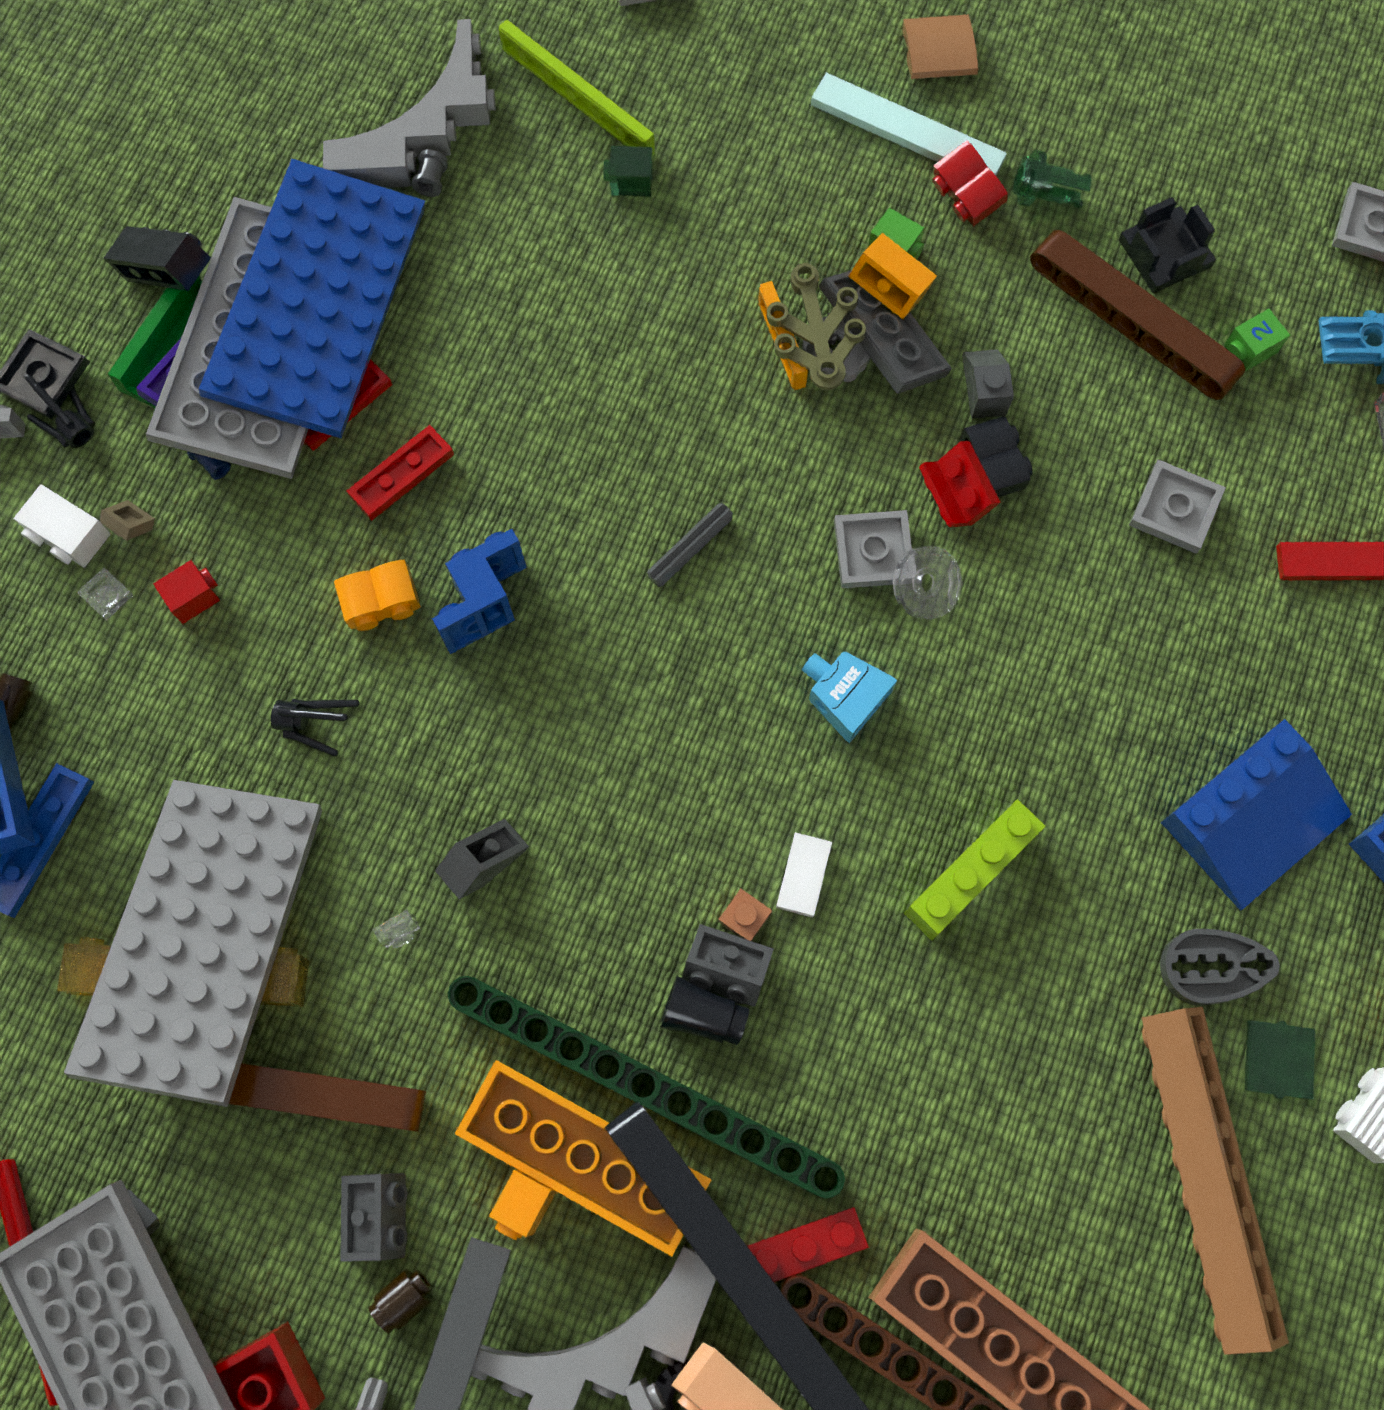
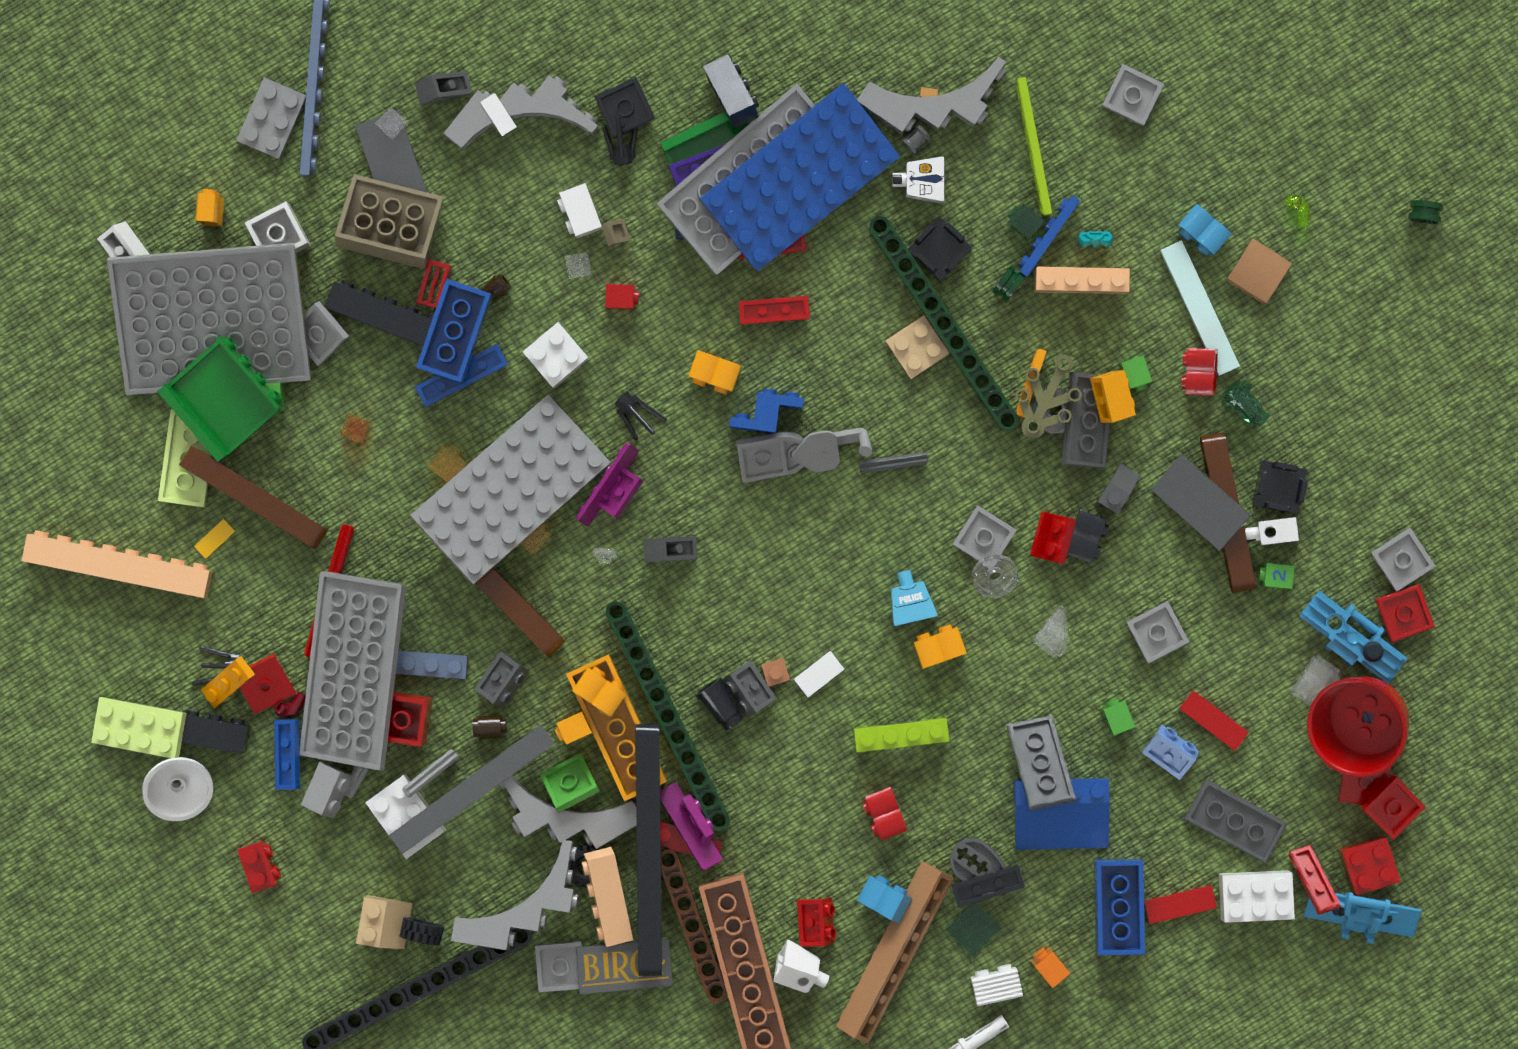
camera: 35 degrees right, 15 degrees up
(148, 721) = (556, 355): none -> white brick
(250, 1276) = (432, 664): none -> sand blue plate
(347, 836) = (614, 489): none -> magenta bracket
(473, 207) = (922, 180): none -> white torso
(518, 1120) = (599, 691): none -> light orange brick
(523, 642) = (788, 452): none -> light grey plate
(552, 266) = (939, 248): none -> black panel
(575, 1292) = (569, 782): none -> bright green plate
(613, 394) = (917, 347): none -> tan plate
(634, 355) = (942, 312): none -> dark green beam
(665, 245) = (1008, 284): none -> dark green wheel
(669, 181) = (1052, 228): none -> blue plate
(727, 136) = (1095, 238): none -> teal piece
(748, 185) = (1081, 280): none -> light nougat brick
(794, 1217) = (691, 825): none -> magenta bracket
(843, 44) = (1203, 230): none -> dark azure brick
(930, 721) = (939, 647): none -> light orange brick
(1039, 992) = (885, 814): none -> red brick
(1056, 599) = (1053, 634): none -> clear slope
(1071, 1221) = (816, 922): none -> red bracket
(1098, 317) = (1201, 502): none -> dark grey tile
(1104, 1310) = (798, 968): none -> white torso
(1137, 1110) = (884, 898): none -> dark azure brick
(1185, 765) = (1041, 763): none -> tile
(1214, 285) = (1285, 529): none -> white torso
(1222, 640) = (1117, 716): none -> bright green brick
(1255, 982) = (987, 885): none -> black plate
(1323, 635) = (1171, 752): none -> medium blue bracket

